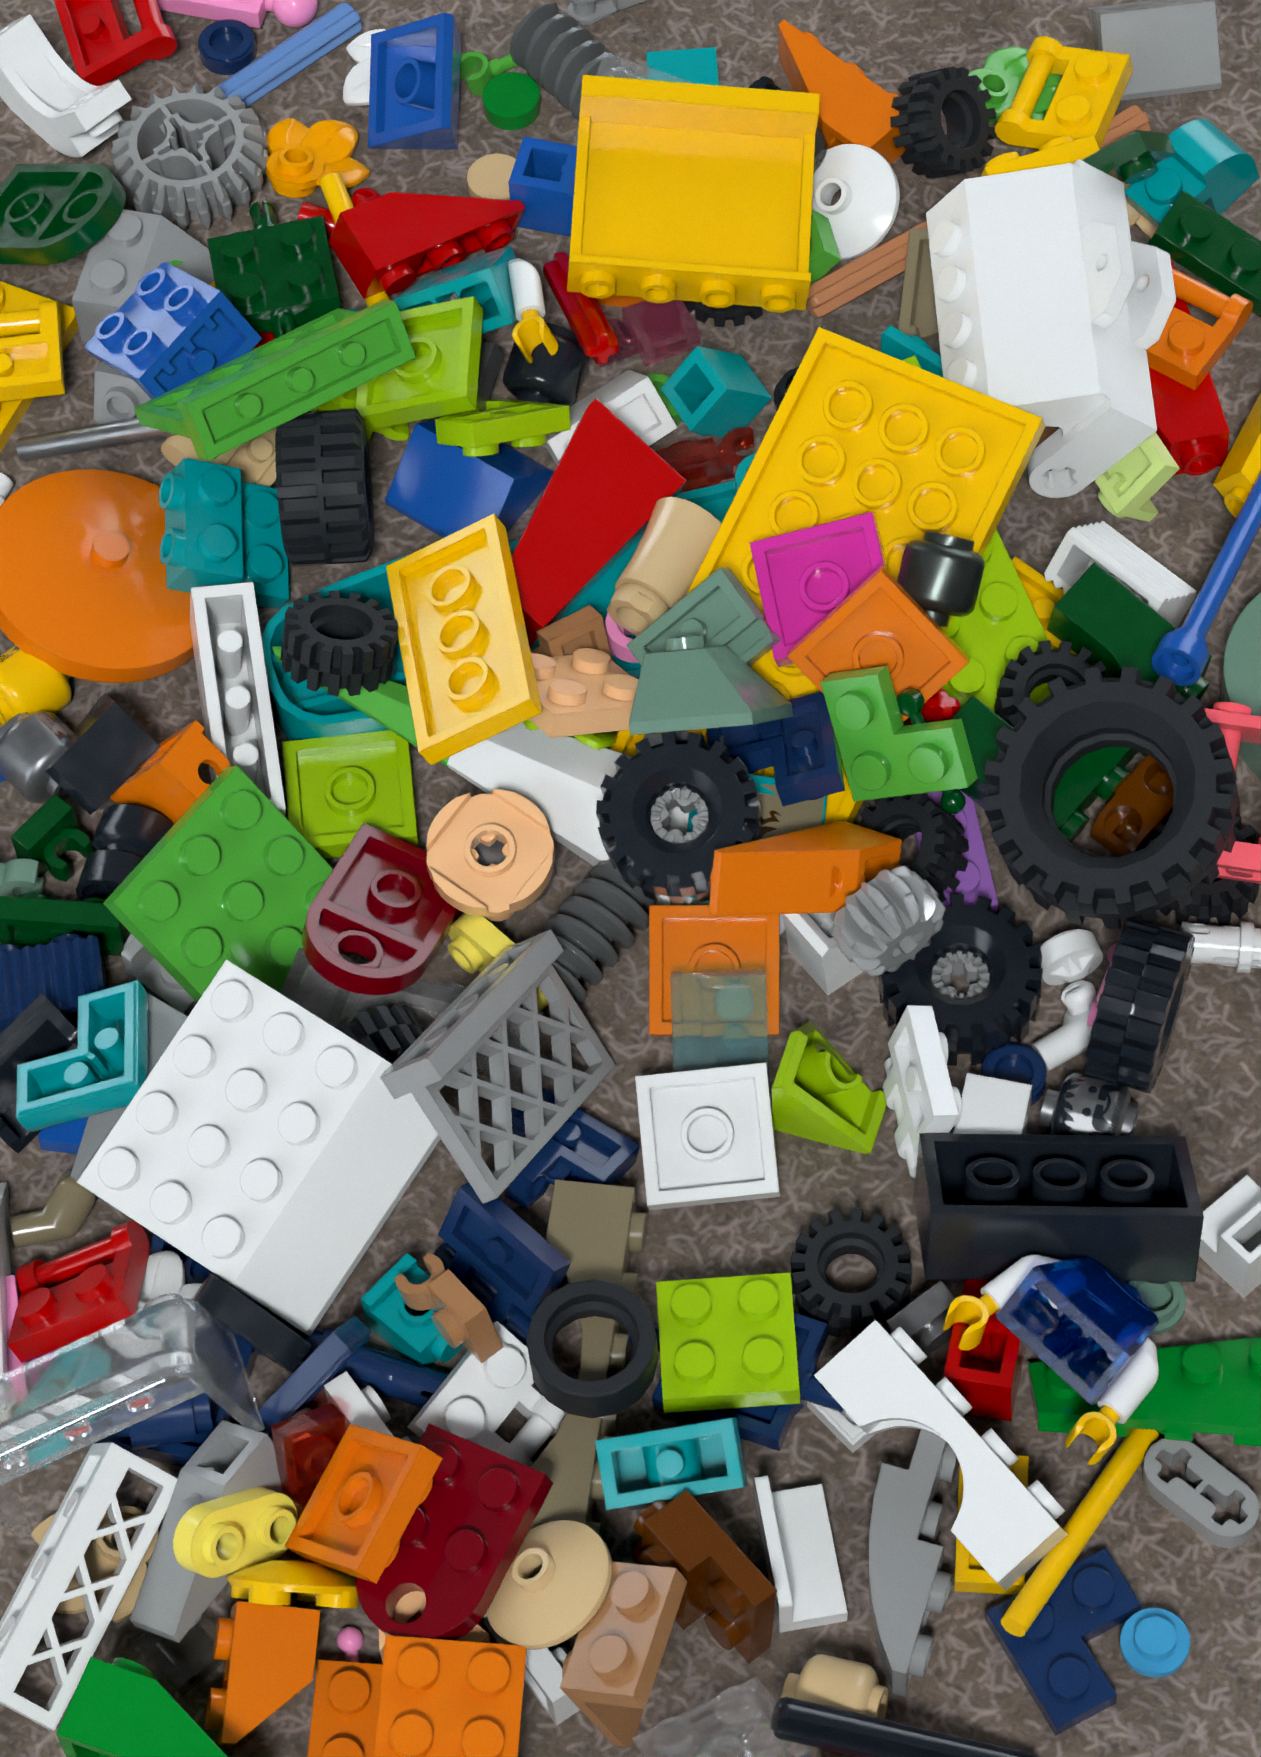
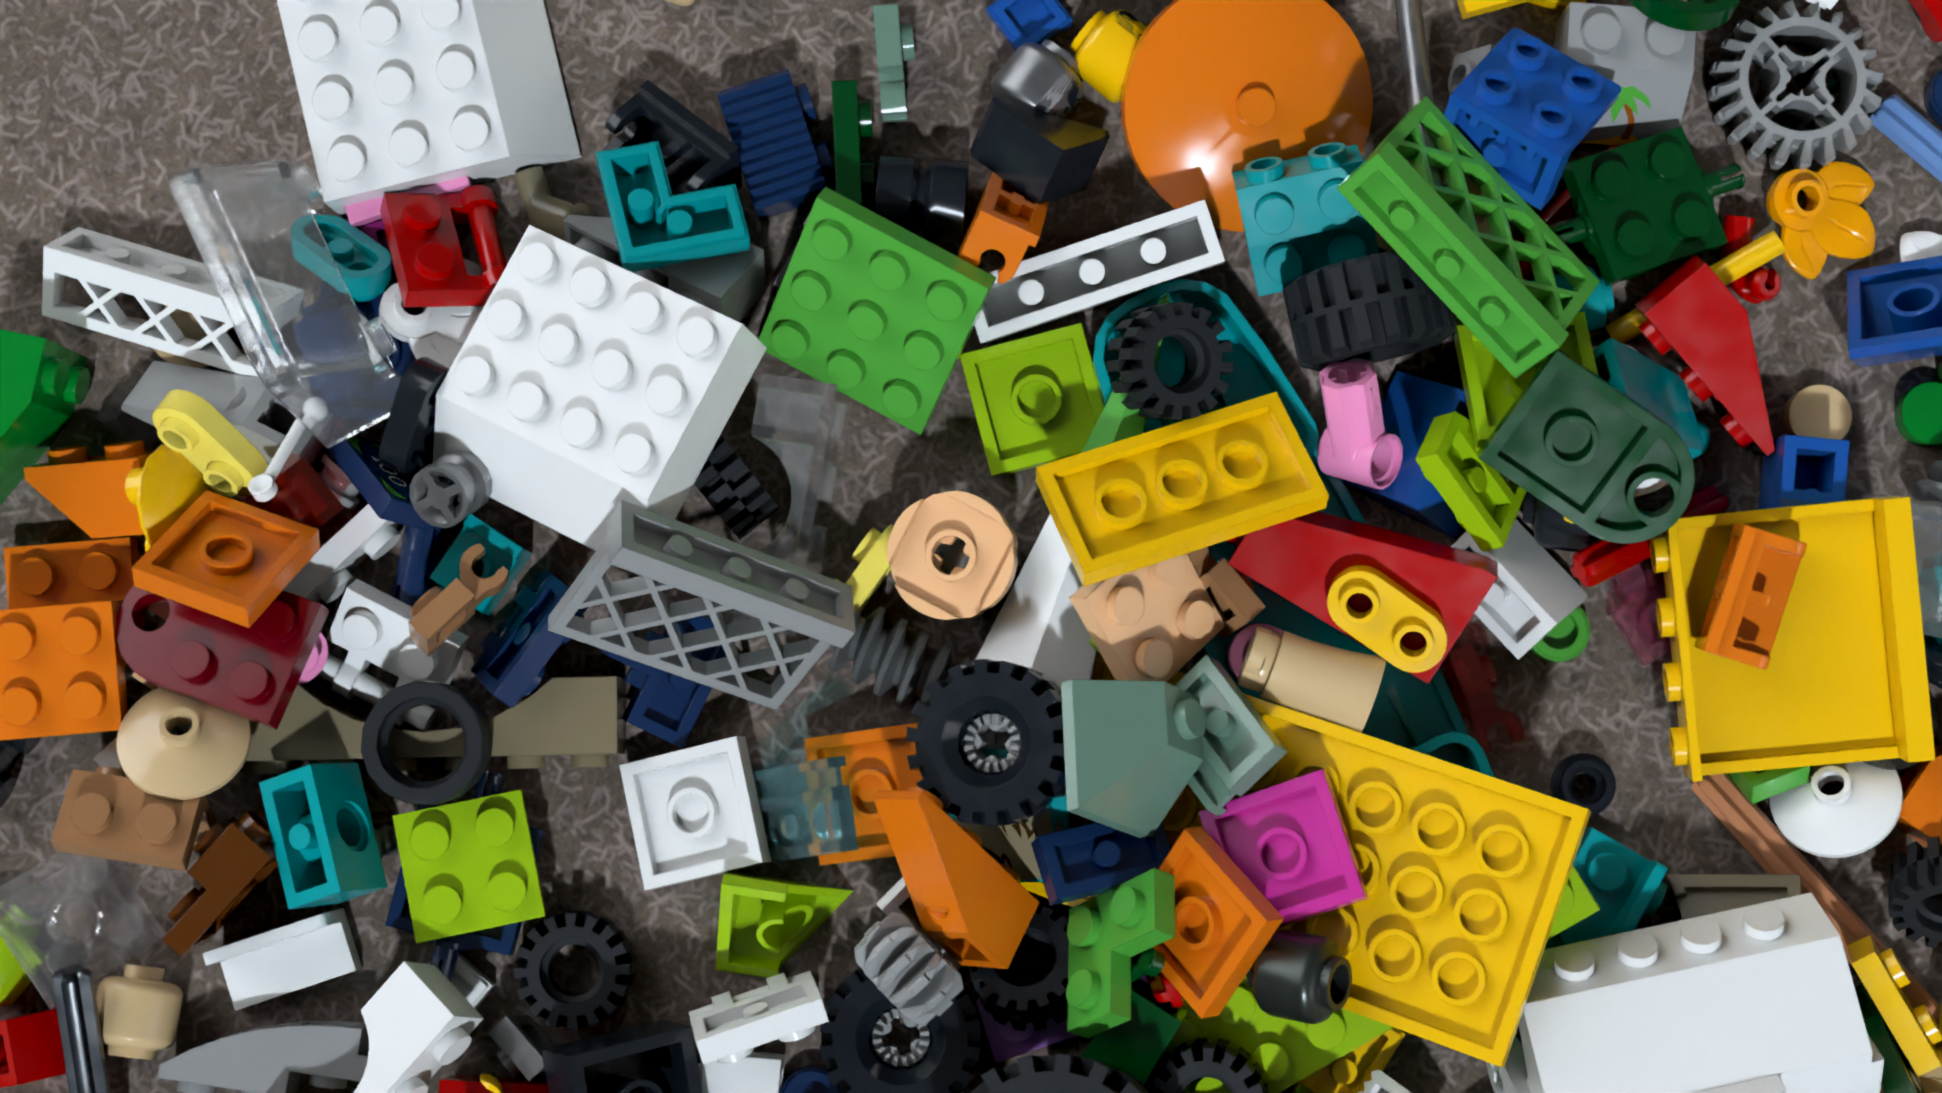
camera: 80 degrees right, 25 degrees up
(49, 836) = (943, 114): dark green tile -> none
(293, 1450) = (263, 486): none -> white hinge
(348, 1287) = (445, 504): none -> flat silver wheel
(379, 907) = (880, 453): dark red plate -> none
(424, 506) = (1355, 435): none -> bright pink piece
(491, 308) = (1588, 450): none -> dark green tile
(621, 492) = (1391, 616): none -> yellow plate
(646, 216) = (1750, 595): none -> orange hinge
(715, 392) = (1560, 695): teal brick -> none

